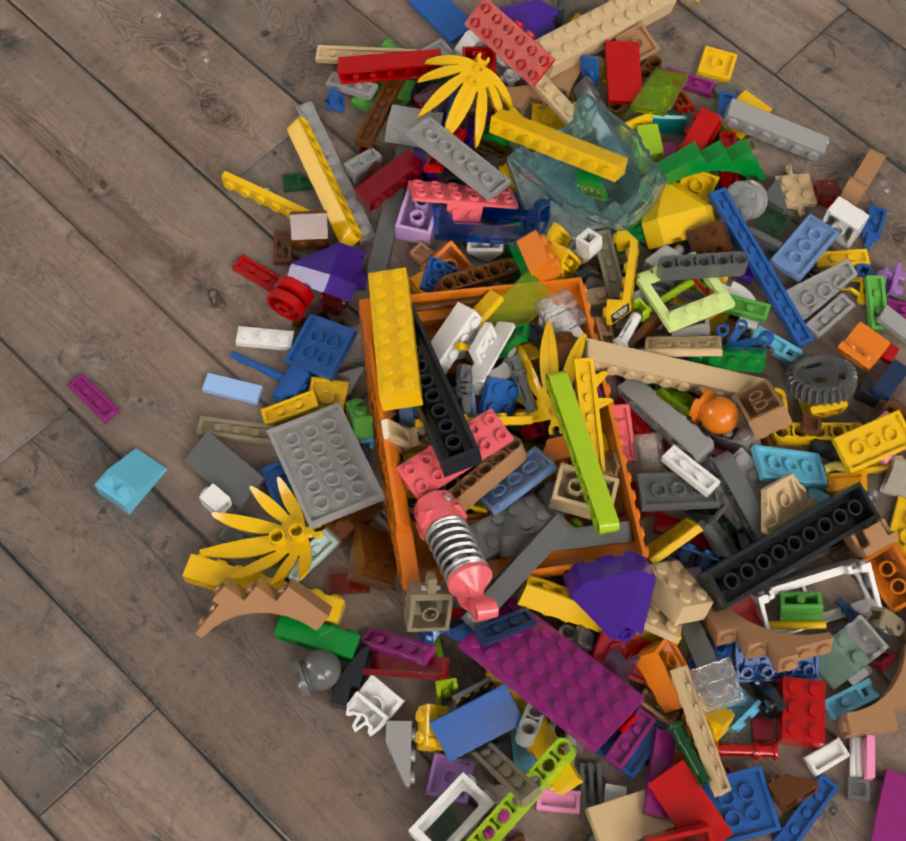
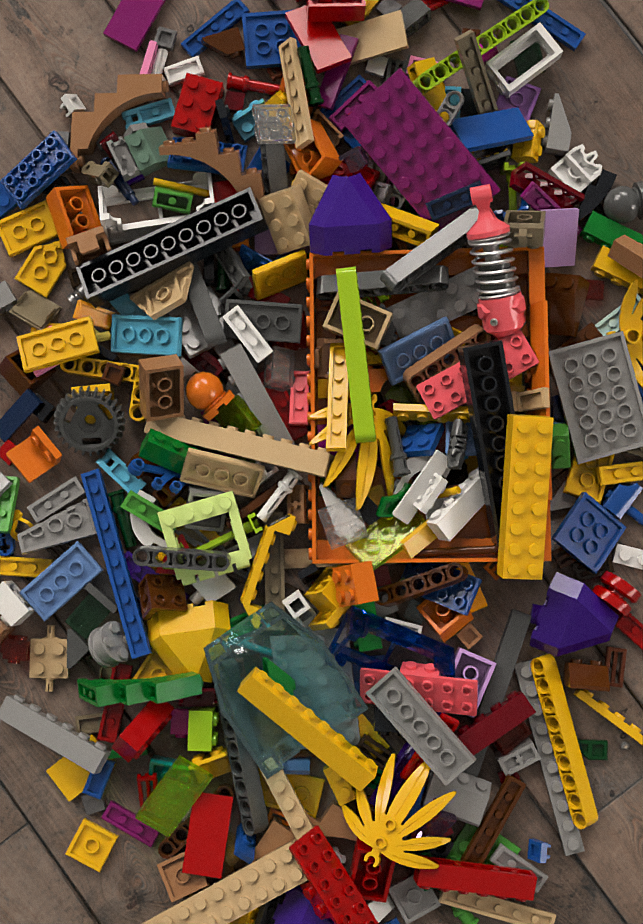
camera: 165 degrees left, 20 degrees up
(386, 623) = (560, 236): none -> lavender tile
(772, 321) = (117, 499): none -> dark green pin

